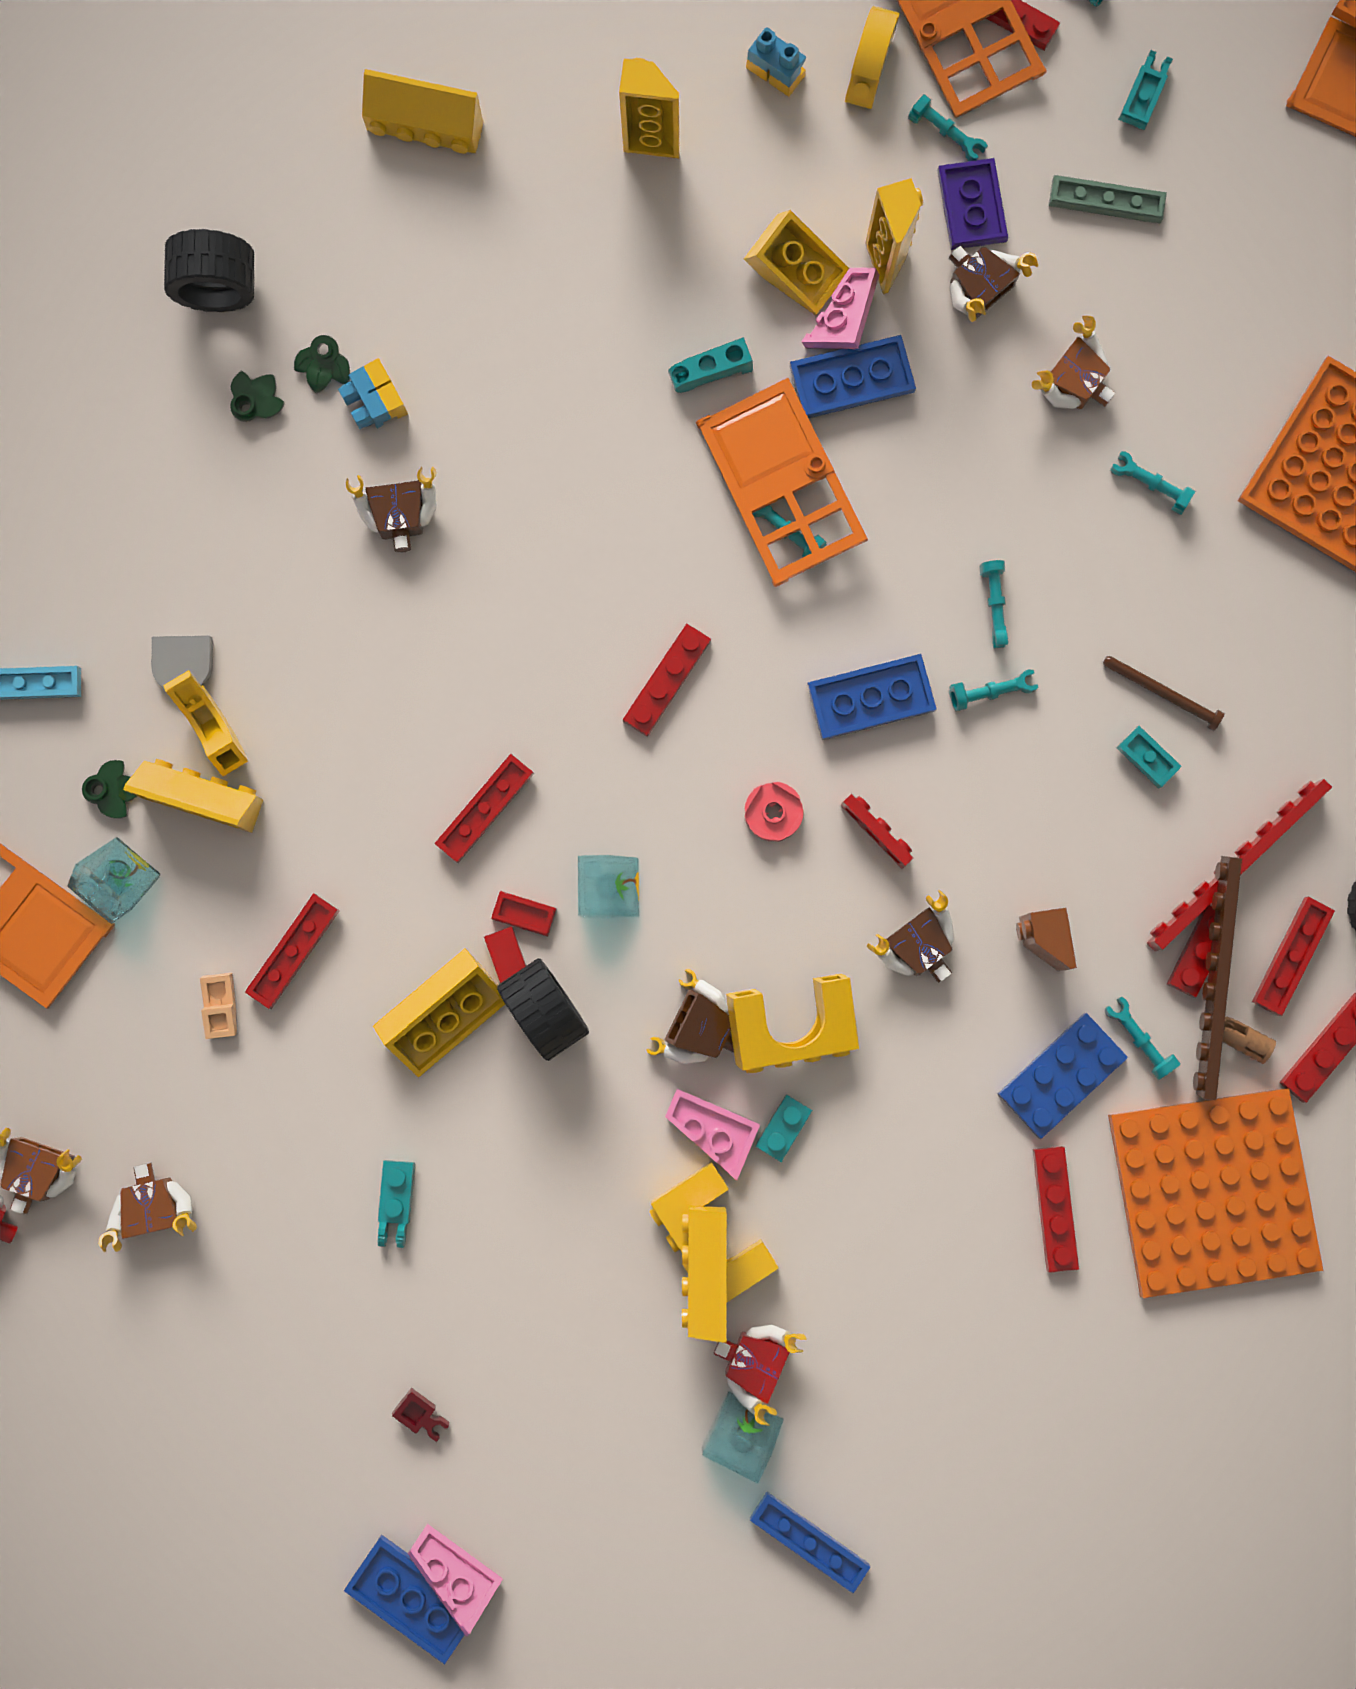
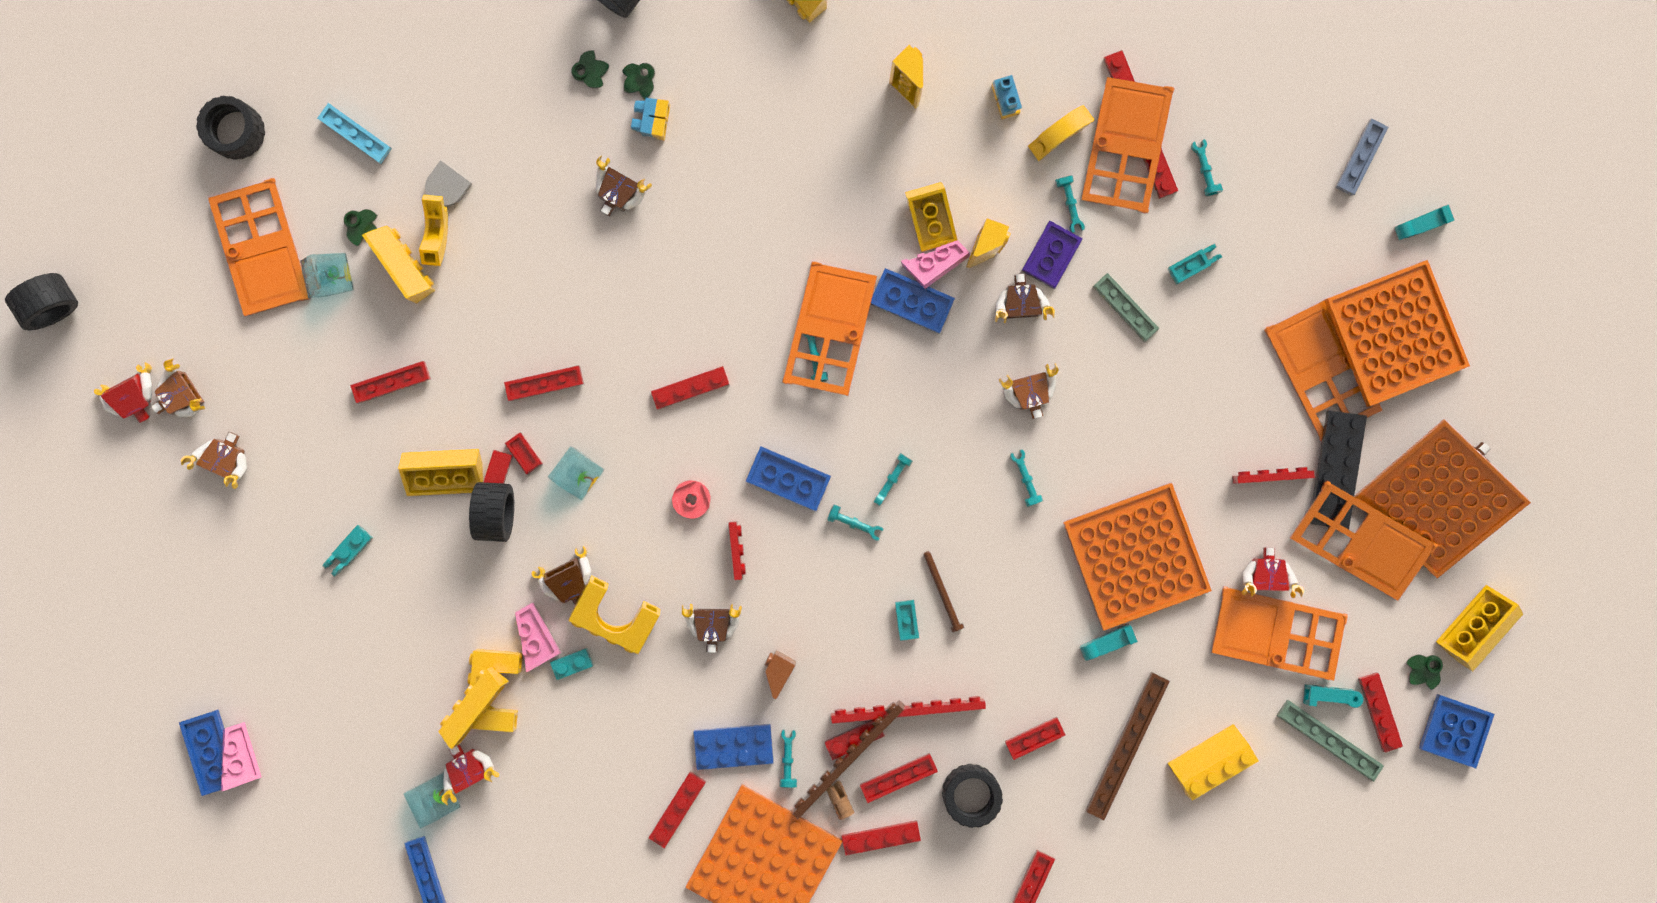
camera: 30 degrees right, 5 degrees up
(219, 1005) = (333, 381): light nougat slope -> none
(416, 1412) = (280, 663): dark red plate -> none
(711, 366) = (842, 238): teal leg -> none

